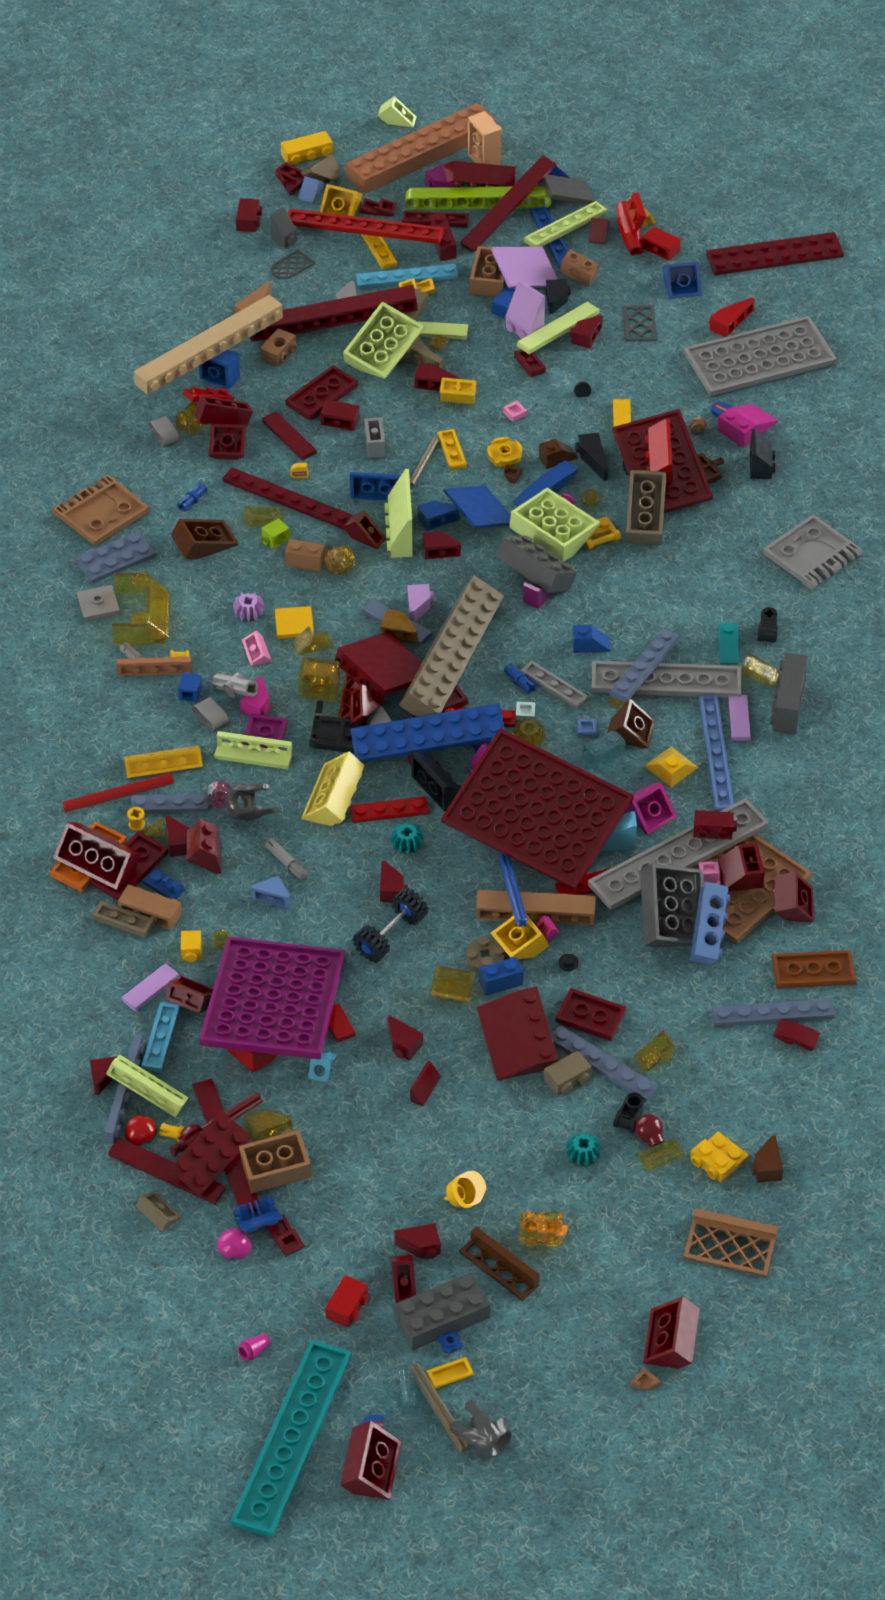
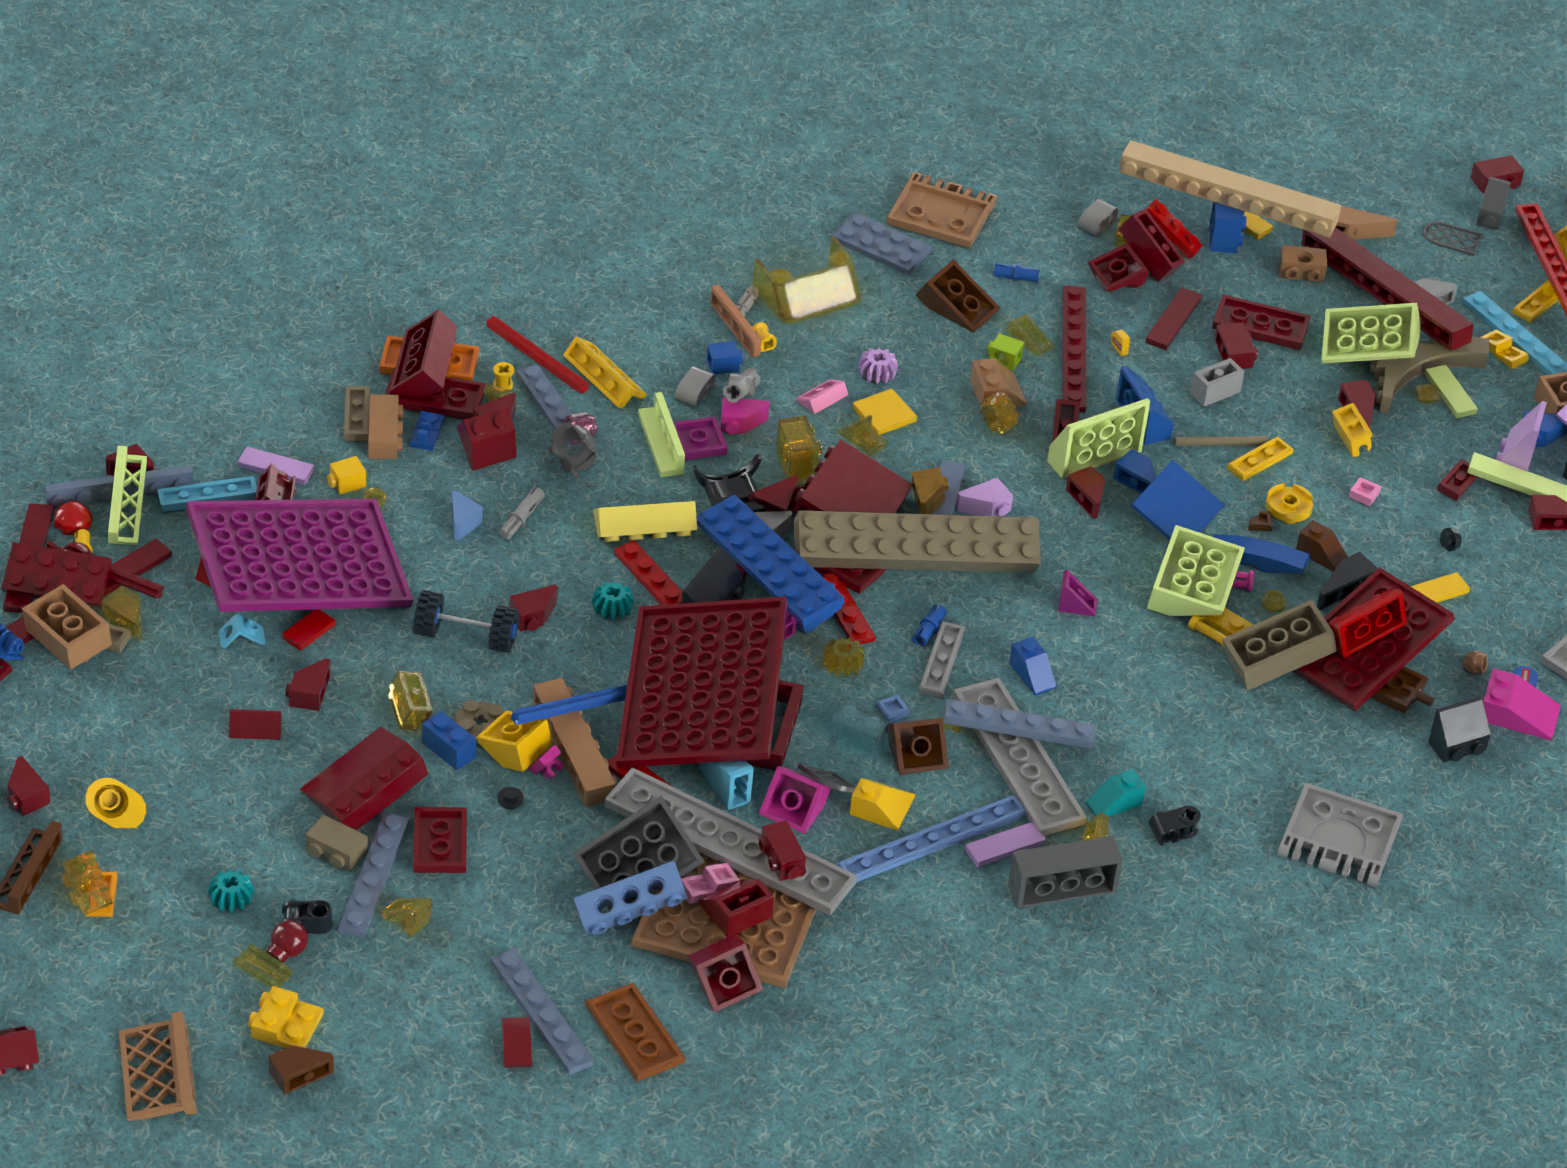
camera: 60 degrees right, 5 degrees down
(98, 602) = (802, 252): light grey plate -> none
(525, 710) = (878, 644): light aqua plate -> none
(536, 563) = (1112, 577): dark grey brick -> none
(648, 779) = (827, 778): none -> dark grey window

